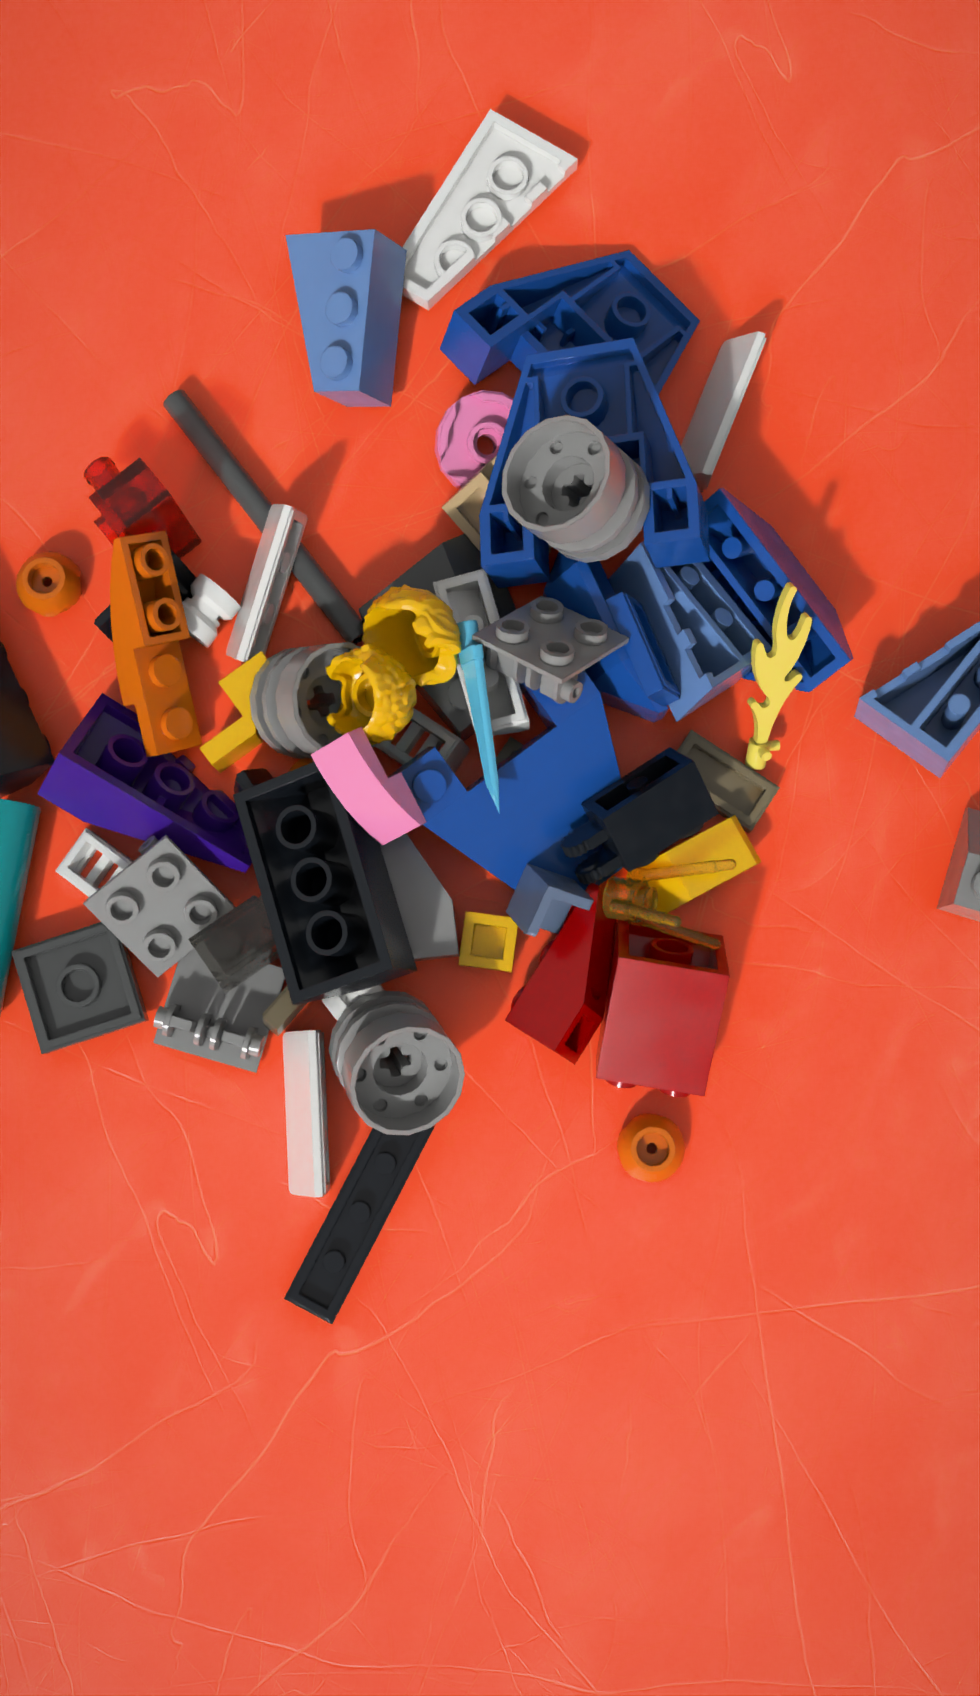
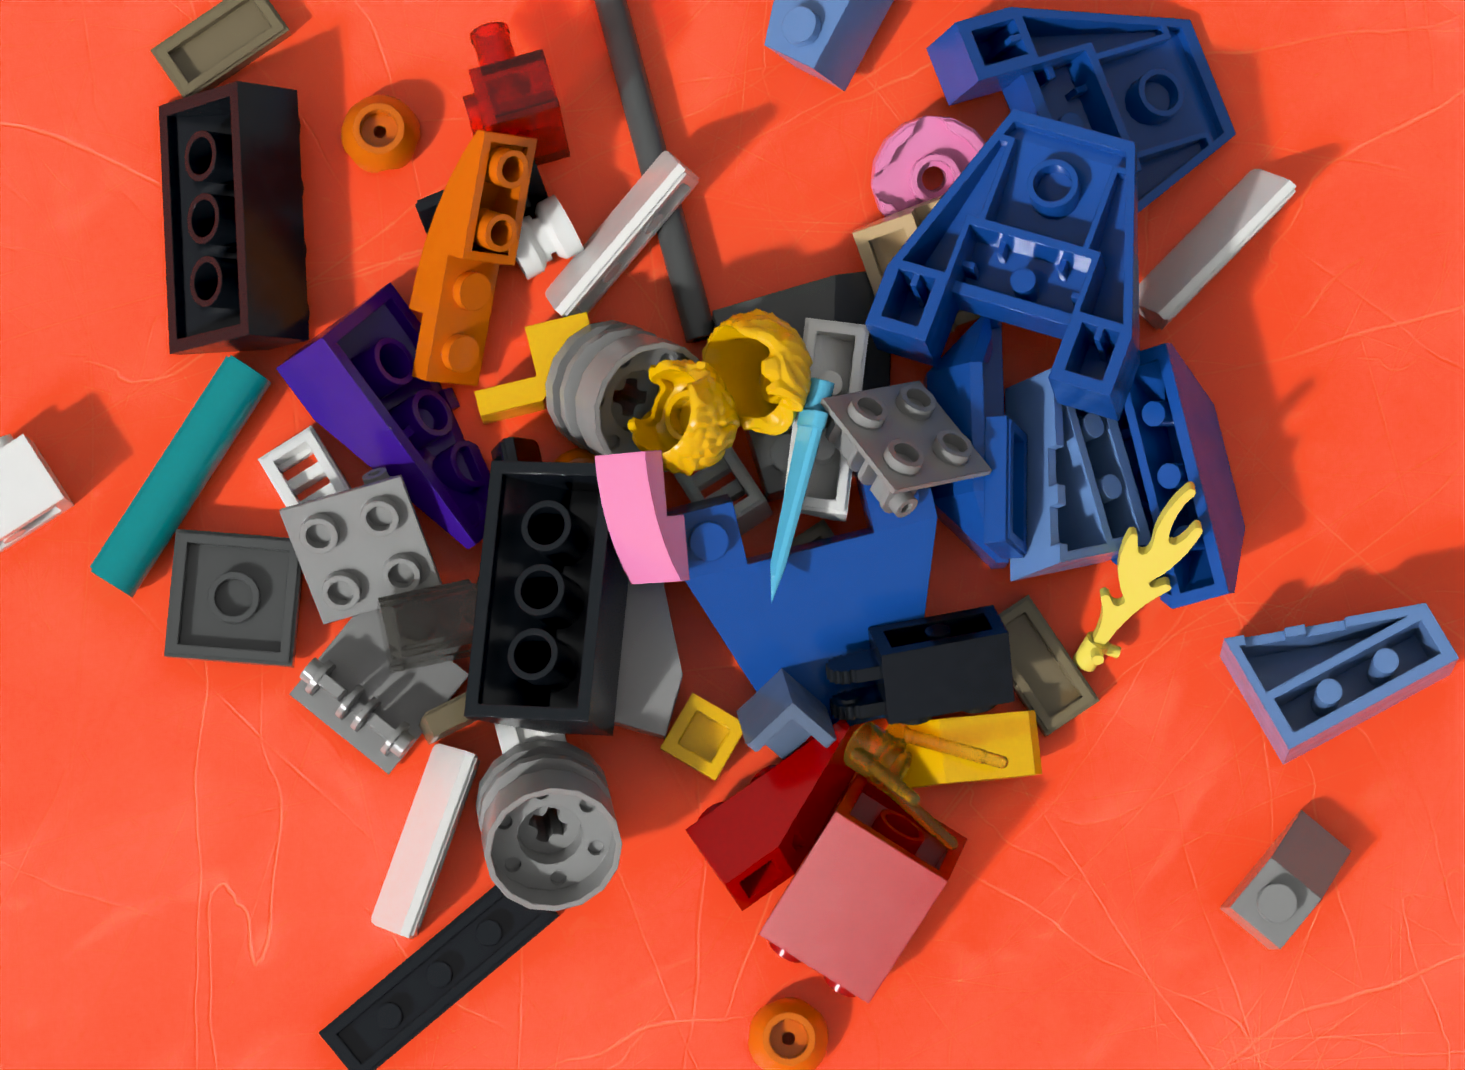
camera: 15 degrees right, 0 degrees up
(575, 489) = (998, 289): light grey wheel -> none

